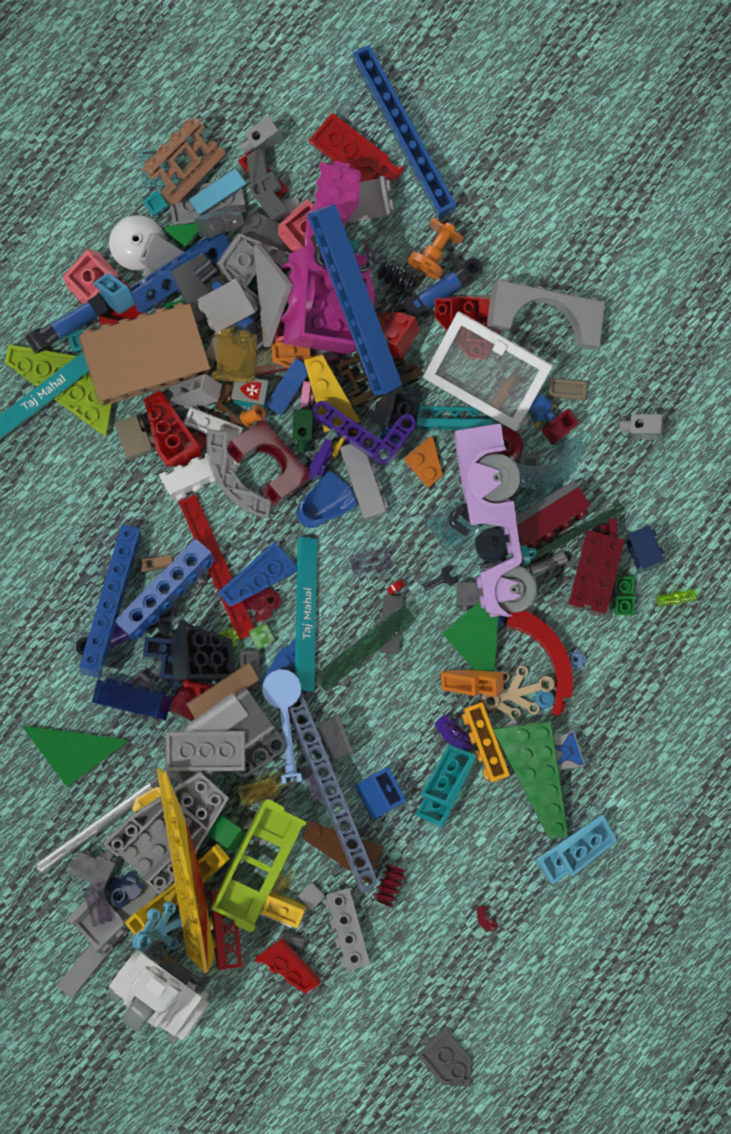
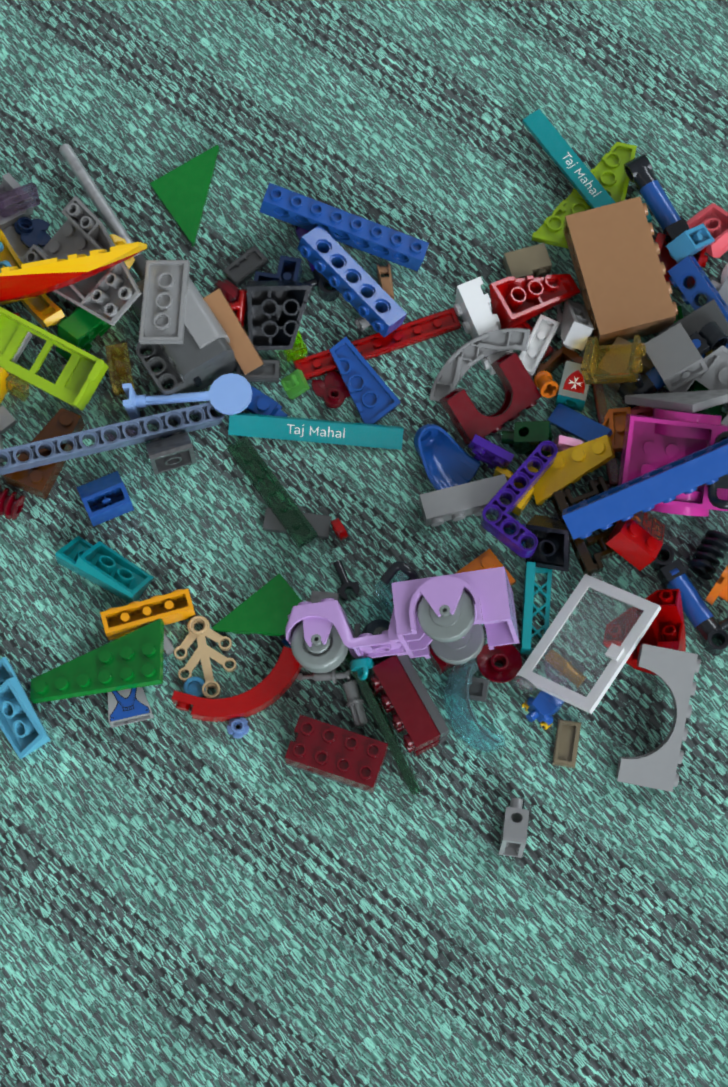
camera: 90 degrees right, 10 degrees down
(93, 869) = (55, 200): flat silver hinge -> none
(132, 700) = (233, 244): clear blue brick -> none
(368, 554) = (373, 522): tile -> none
(450, 731) = (162, 574): dark purple plate -> none
(472, 682) = (220, 605): orange slope -> none
(561, 426) = (518, 728): dark red slope -> none
(610, 529) = (389, 779): dark red tile -> none
(624, 595) = (310, 790): green slope -> none
(644, 549) = (361, 814): dark blue brick -> none
(676, 598) = (301, 852): clear neon green pin -> none

